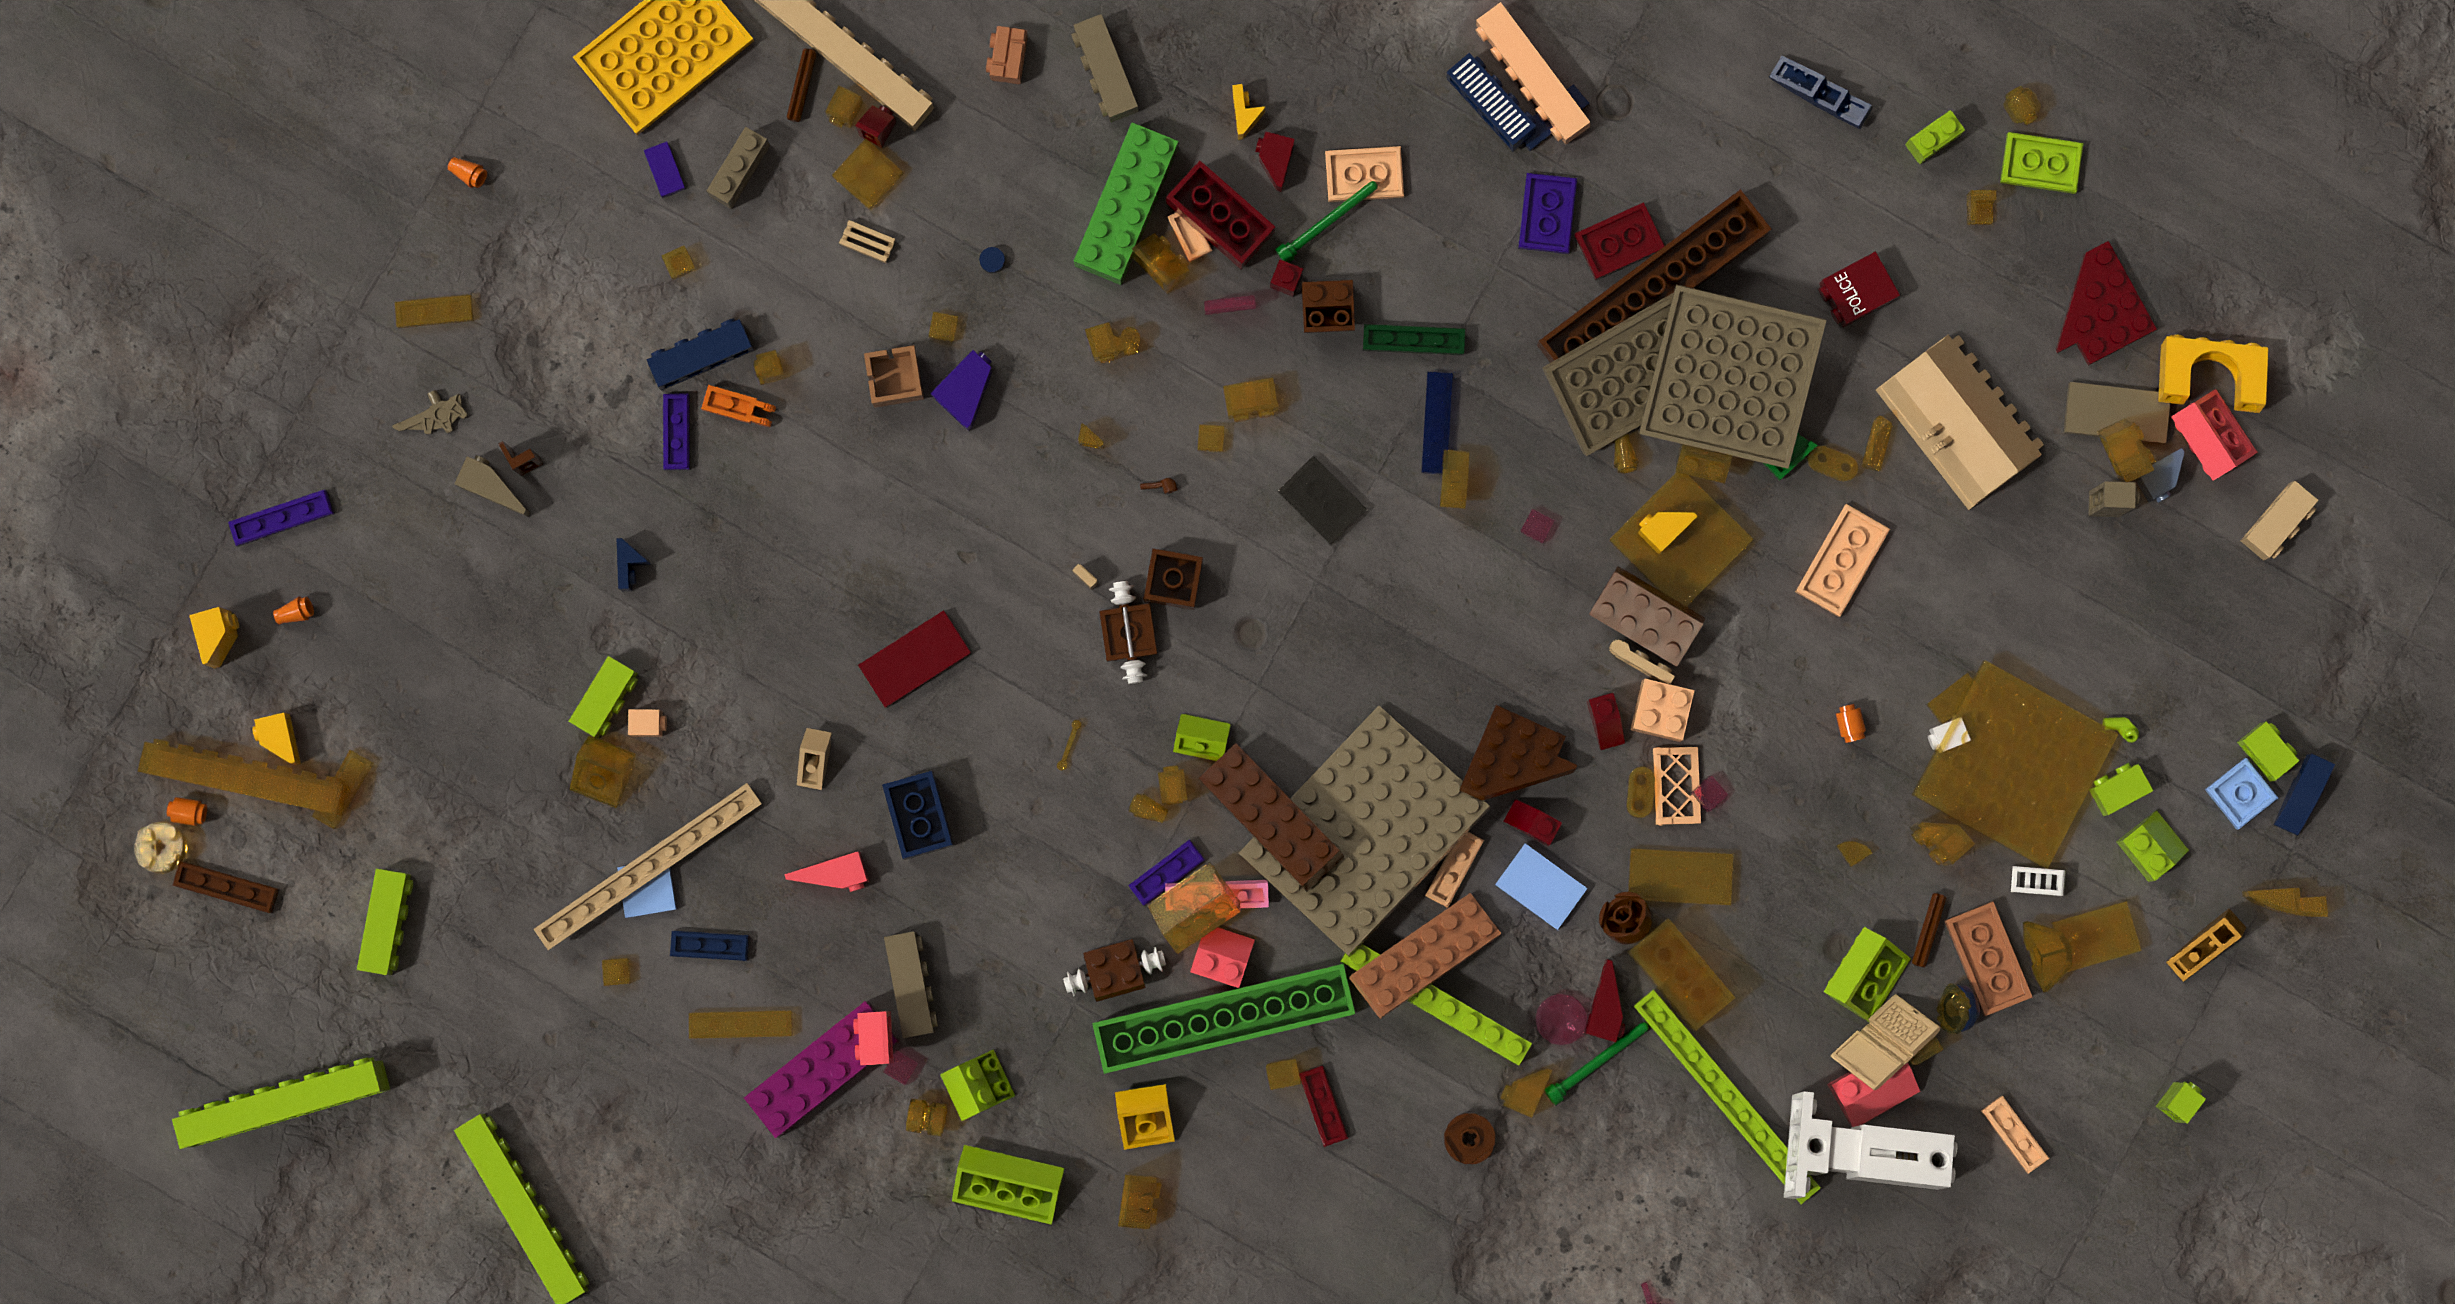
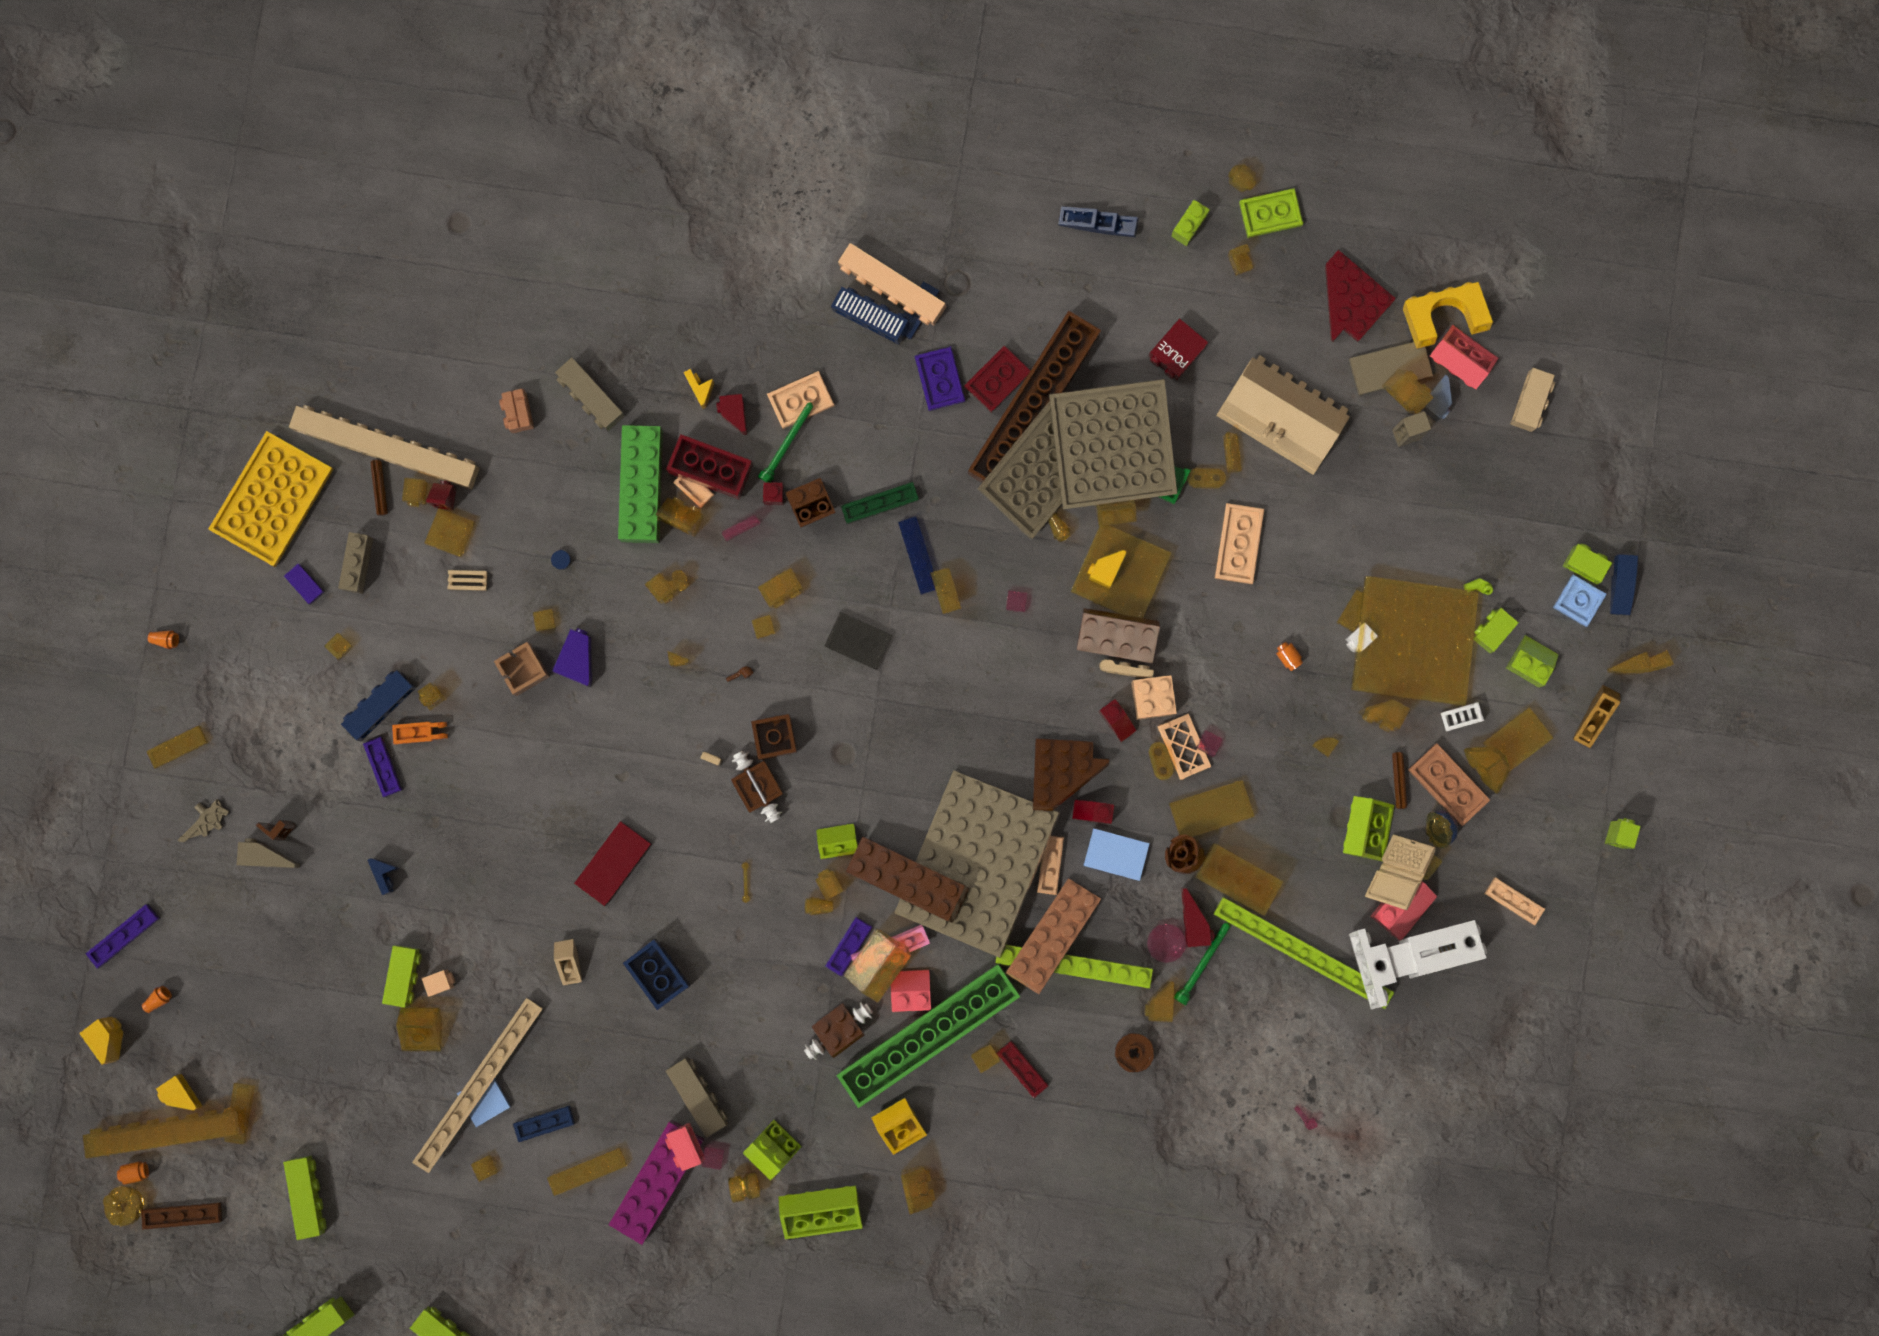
camera: 20 degrees left, 0 degrees up
(837, 873) = (616, 1037): coral slope -> none

